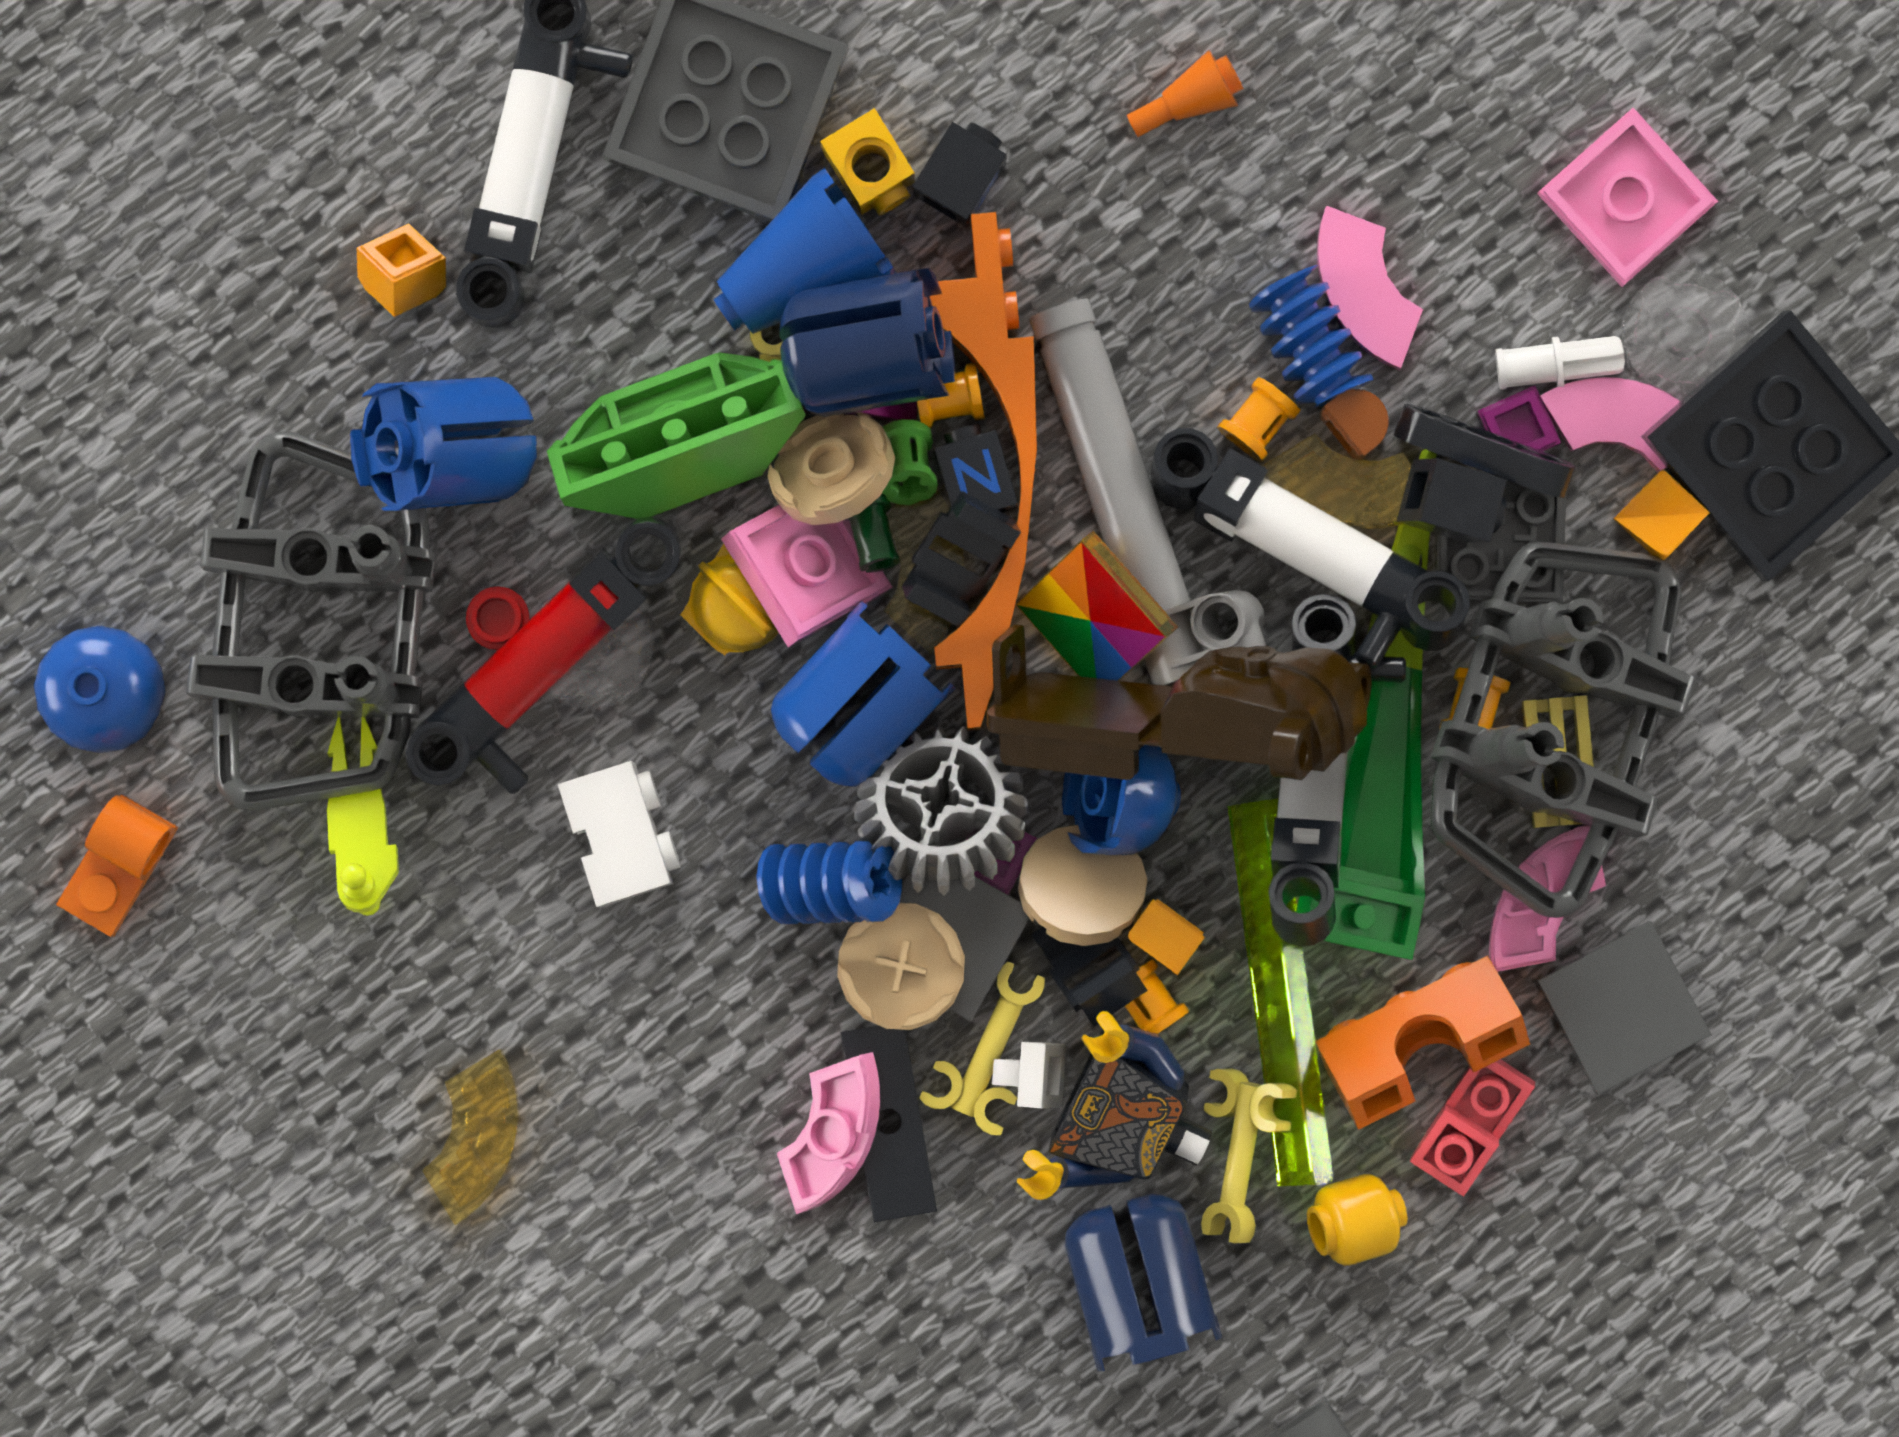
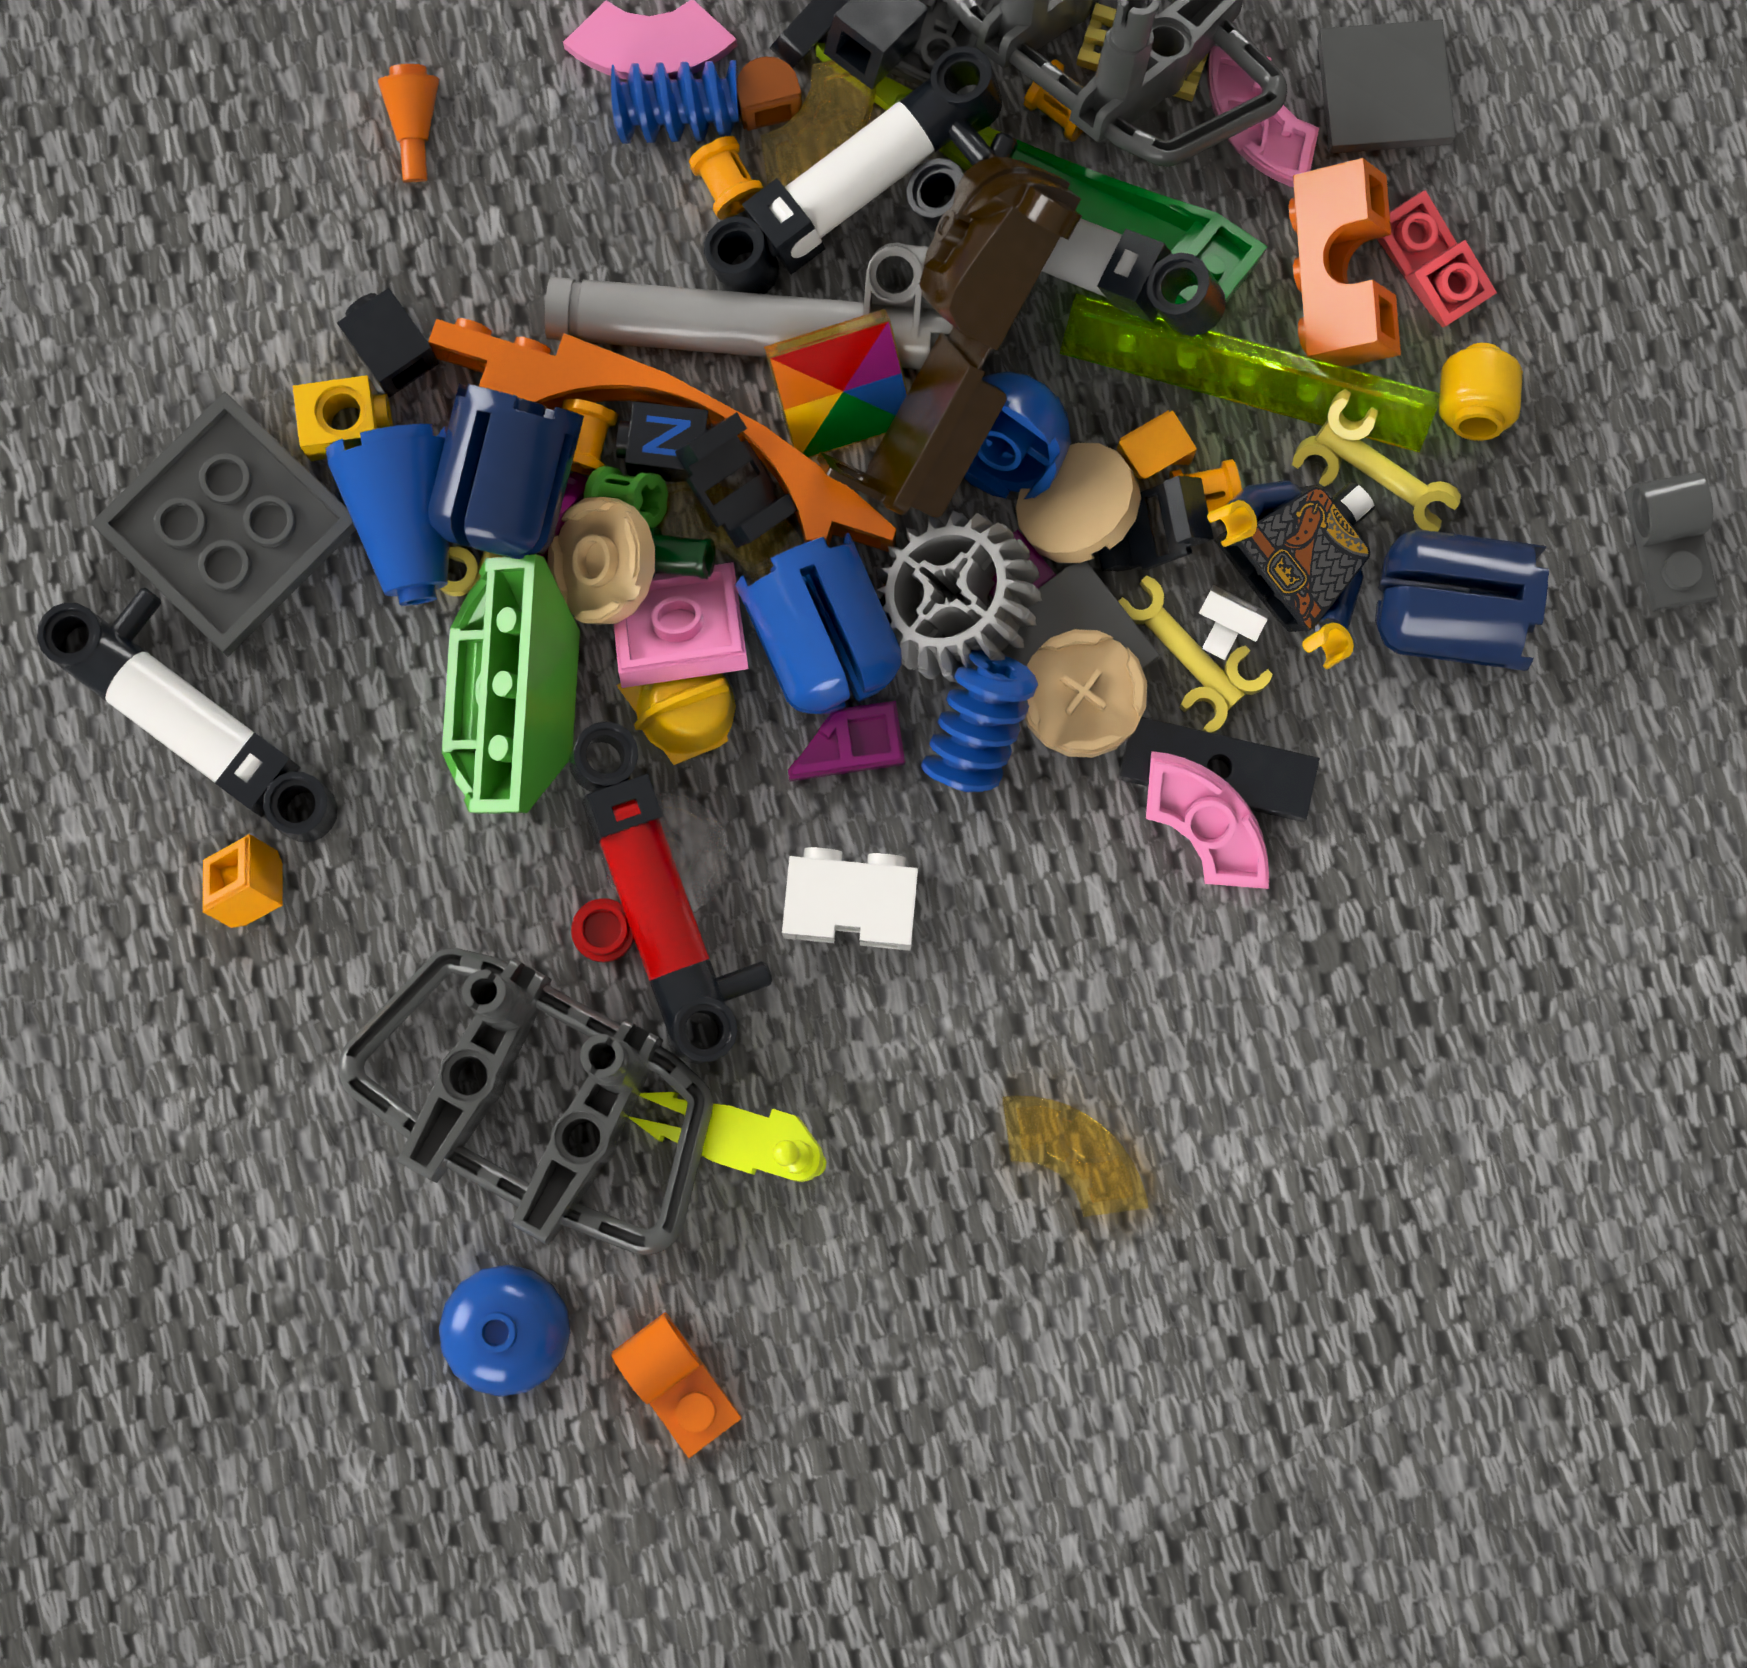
camera: 70 degrees left, 5 degrees down
(434, 457) = (418, 898): blue cylinder -> none
(771, 772) = (852, 742): none -> magenta tile

